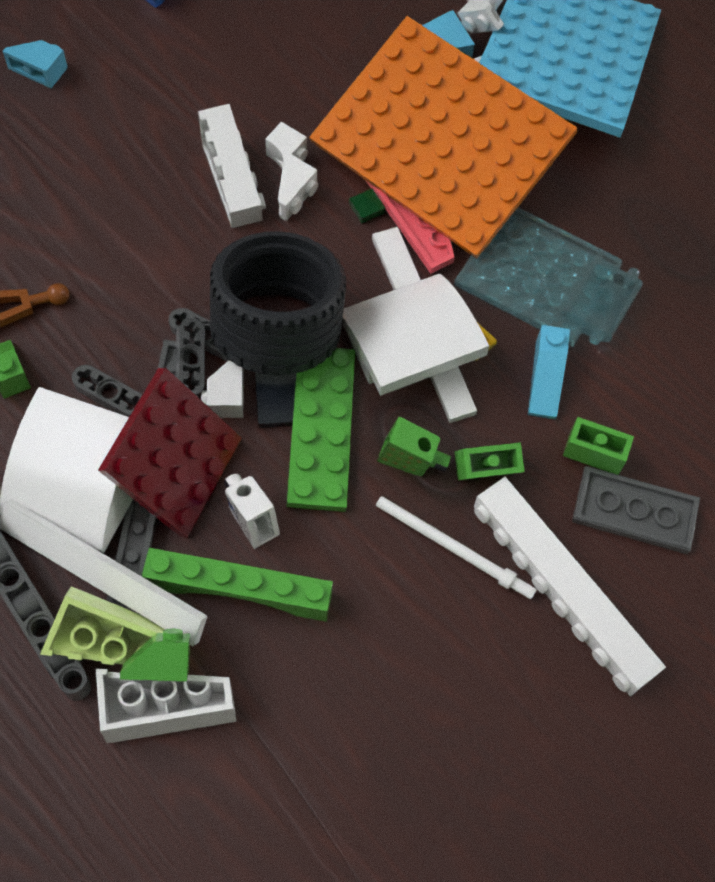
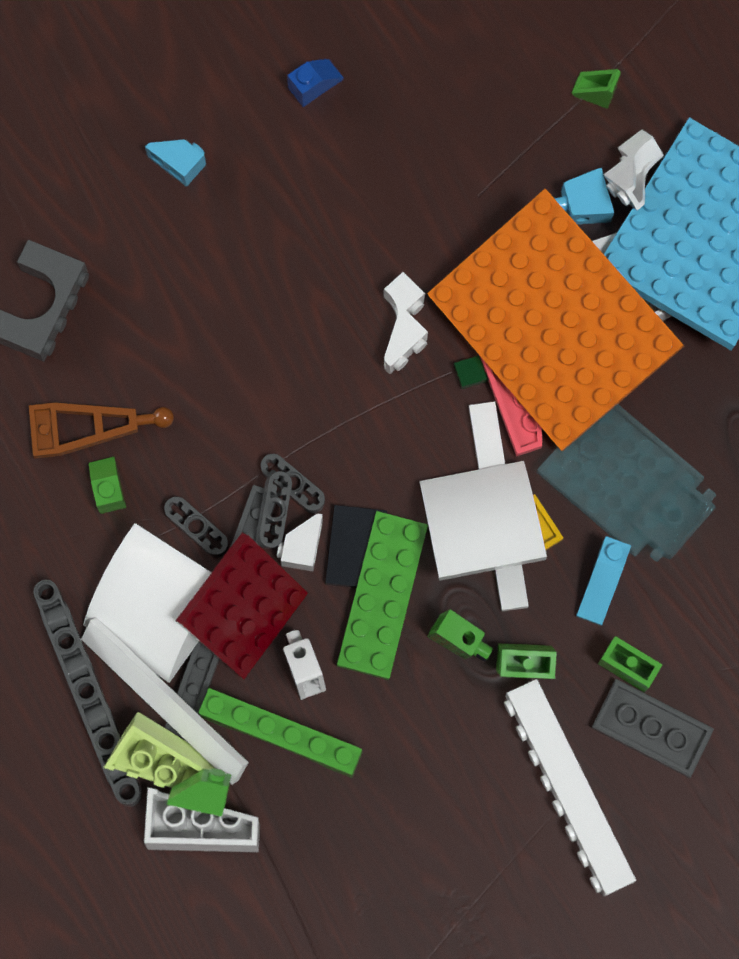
camera: 15 degrees right, 10 degrees up
(230, 166) = (345, 313): white wedge -> none
(276, 266) = (371, 432): black tyre -> none
(506, 577) = (518, 770): white bar -> none

